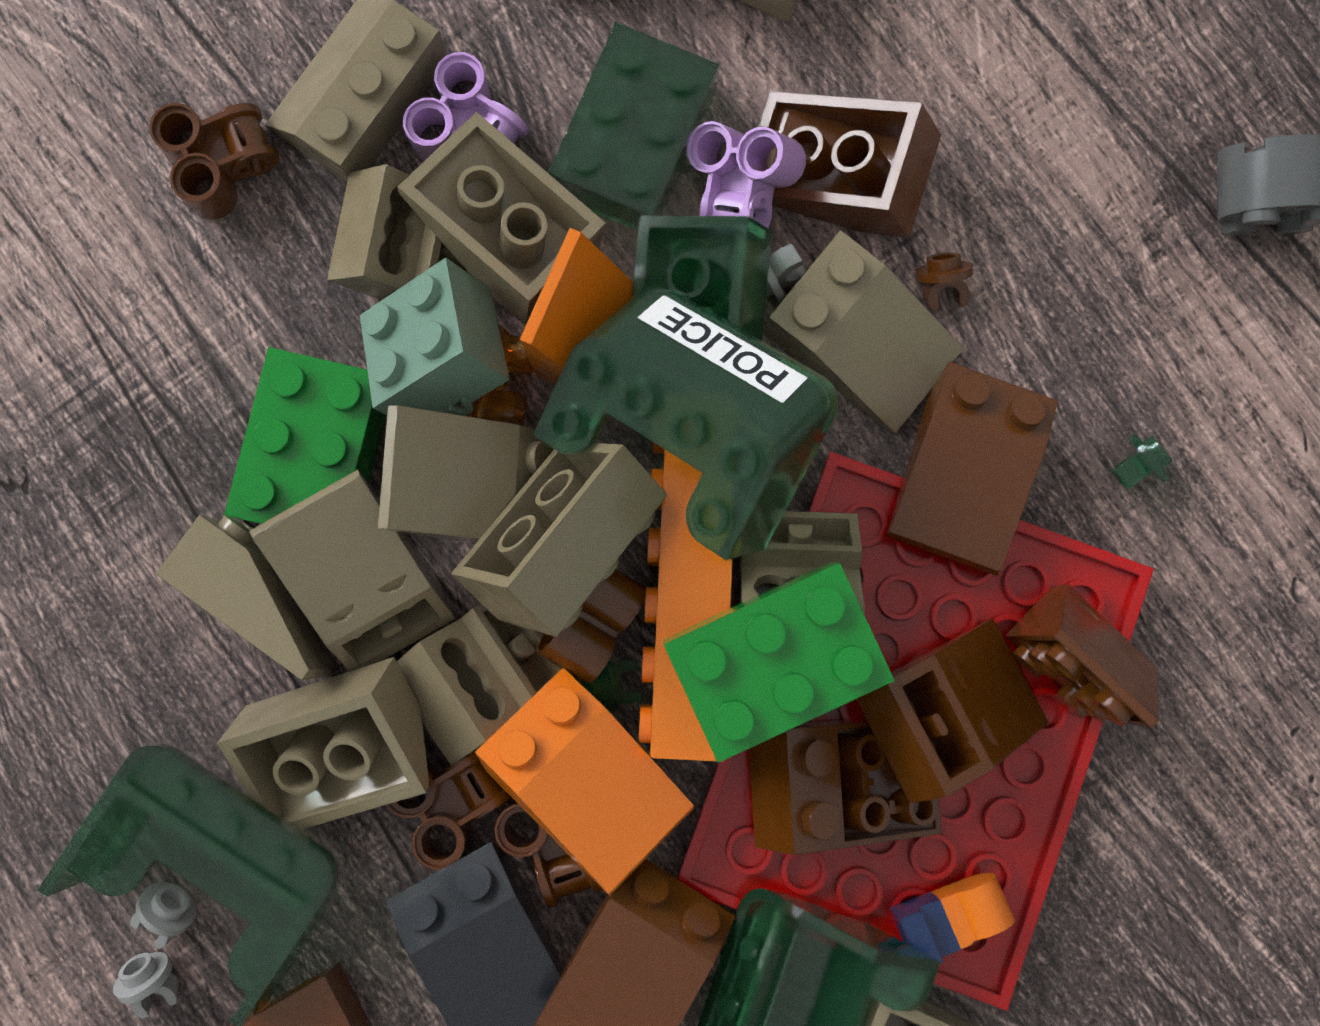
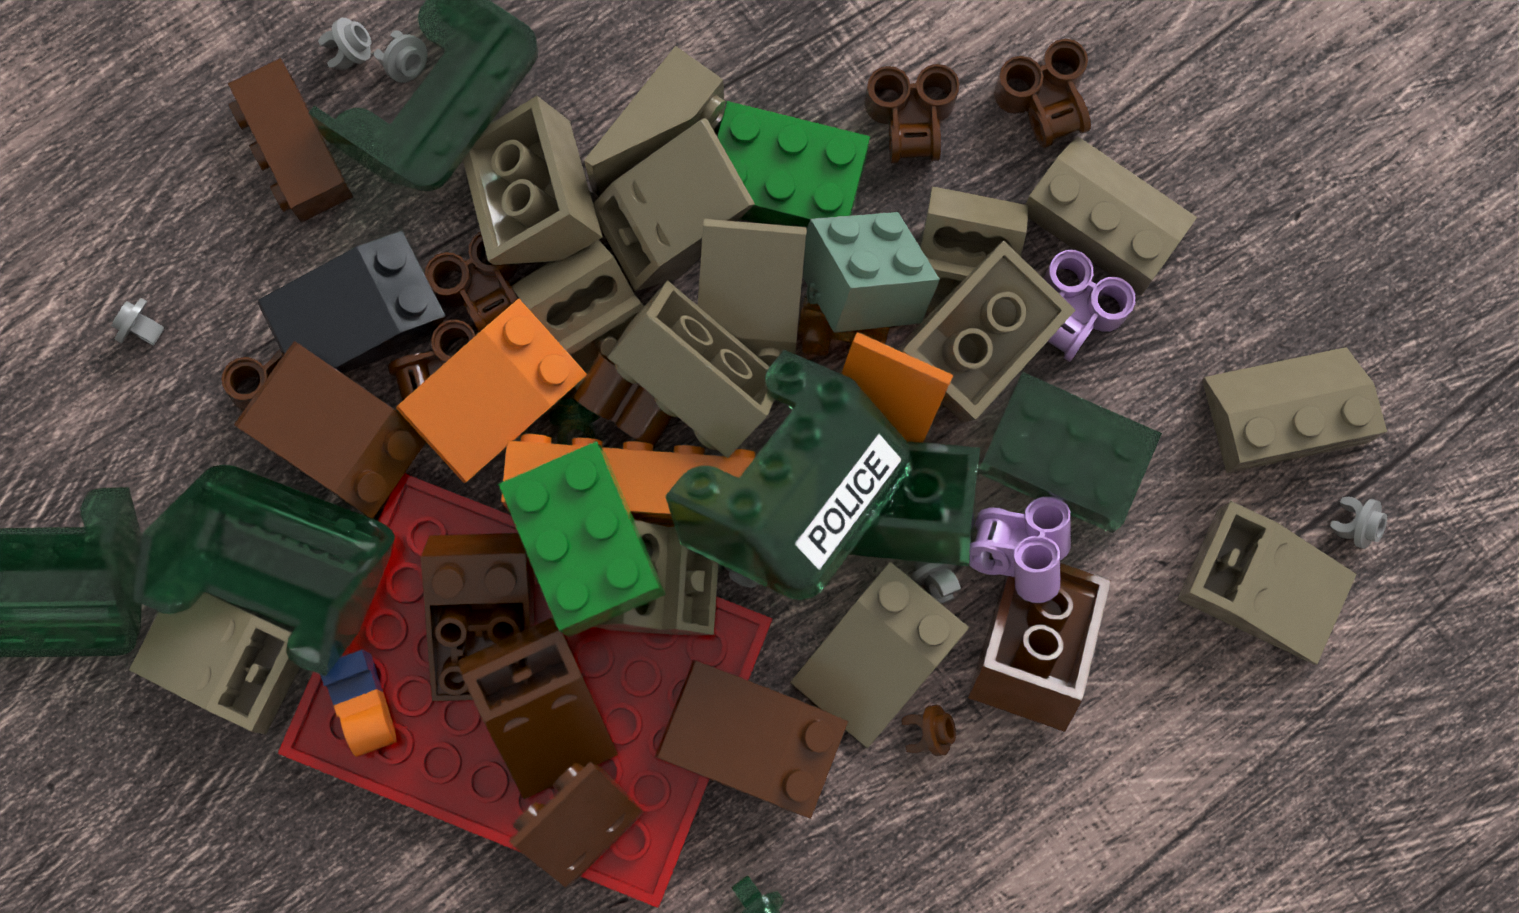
camera: 90 degrees right, 5 degrees down
(244, 302) = (914, 116): none -> reddish brown piece

